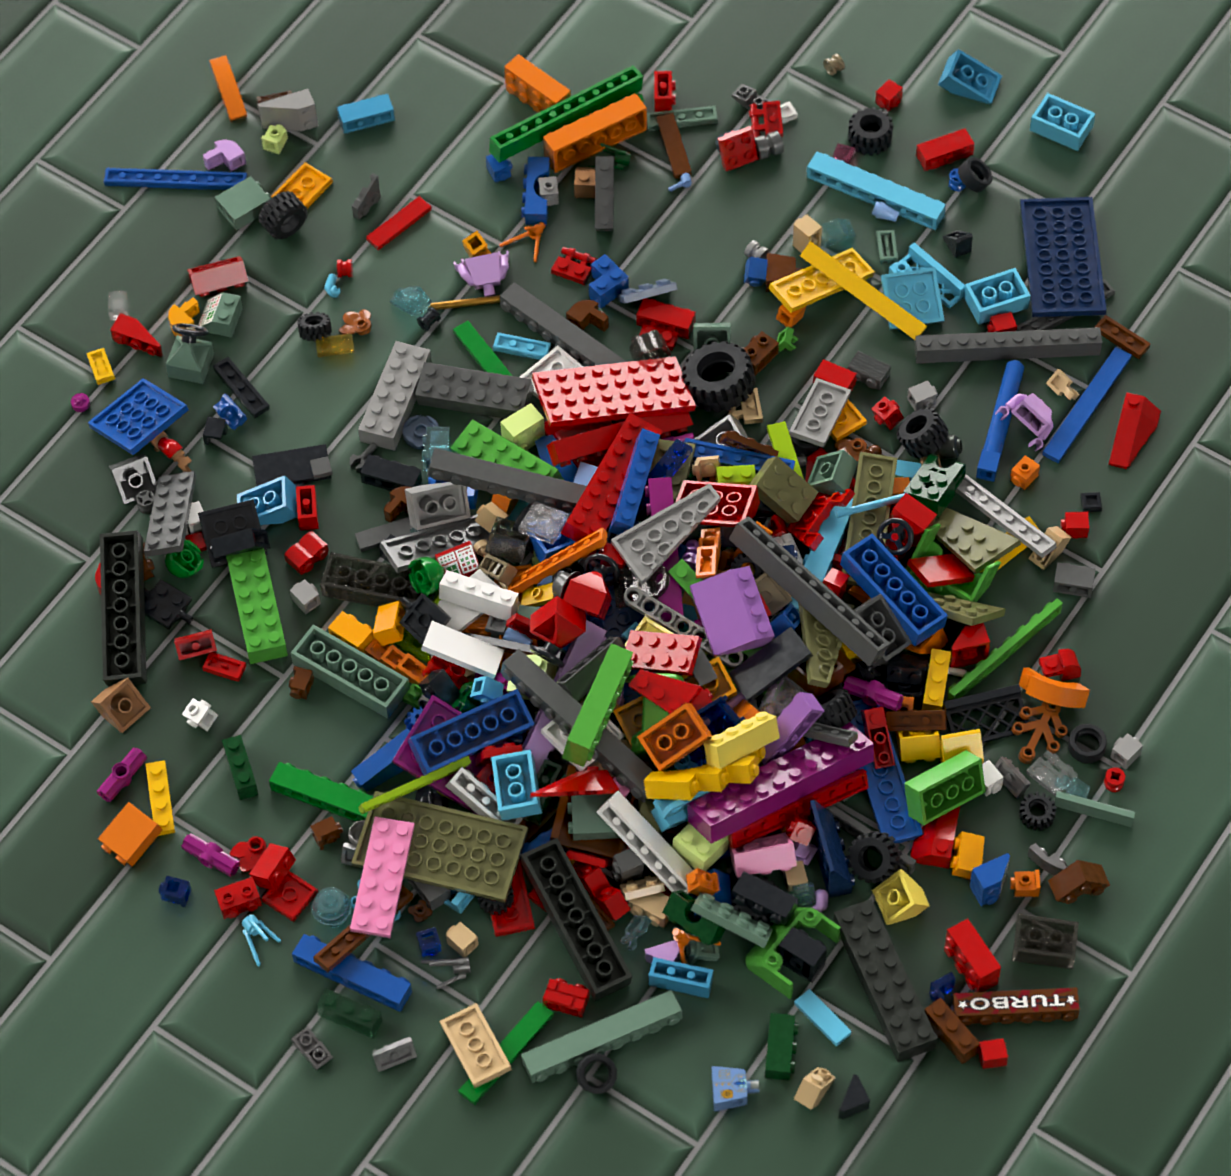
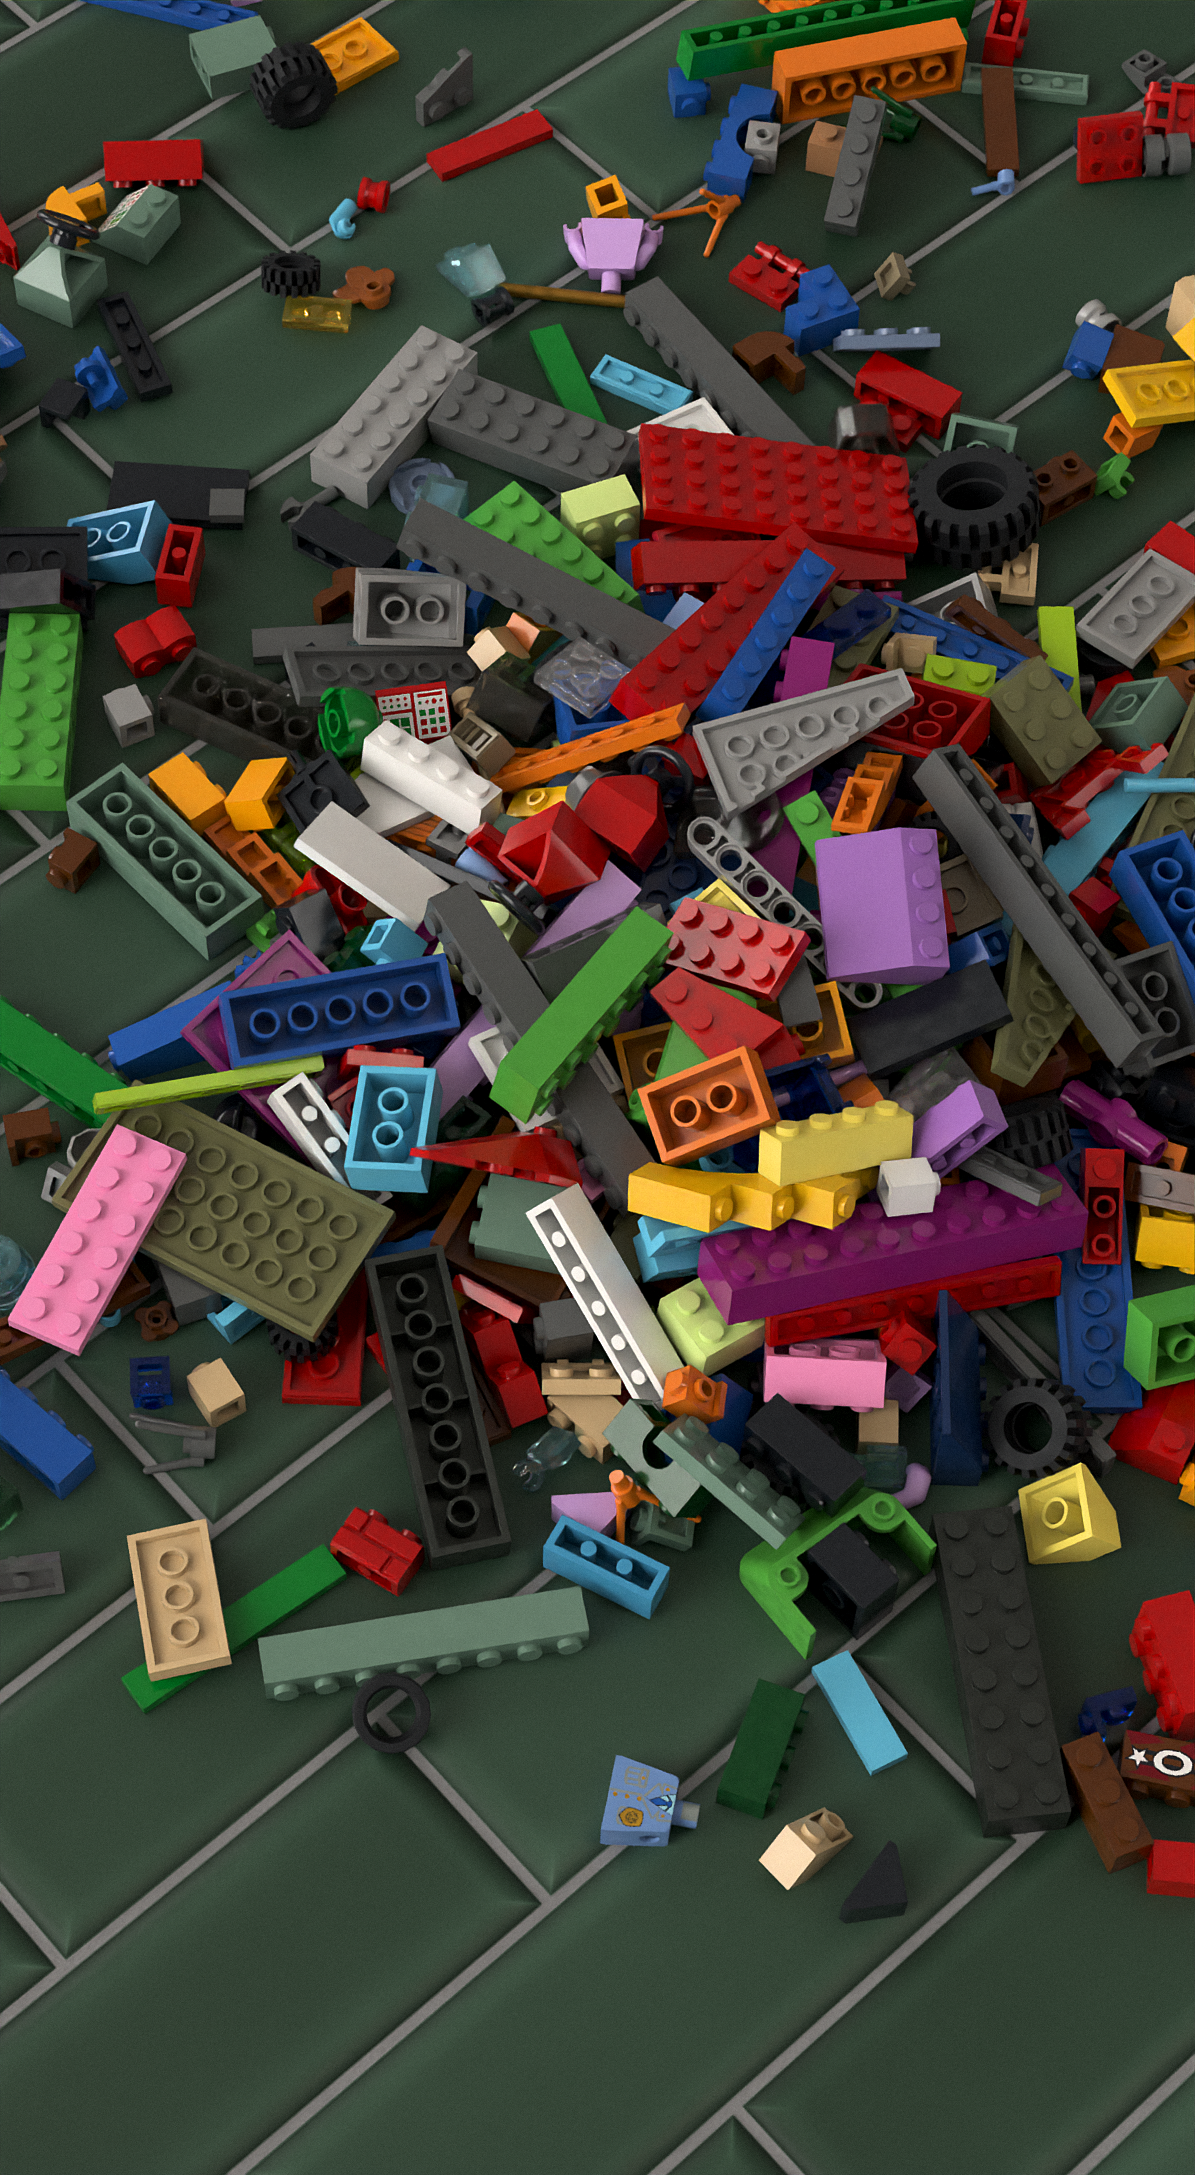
camera: 10 degrees right, 0 degrees up
(640, 251) = (894, 277): none -> dark tan tile
(781, 752) = (907, 1186): none -> white brick

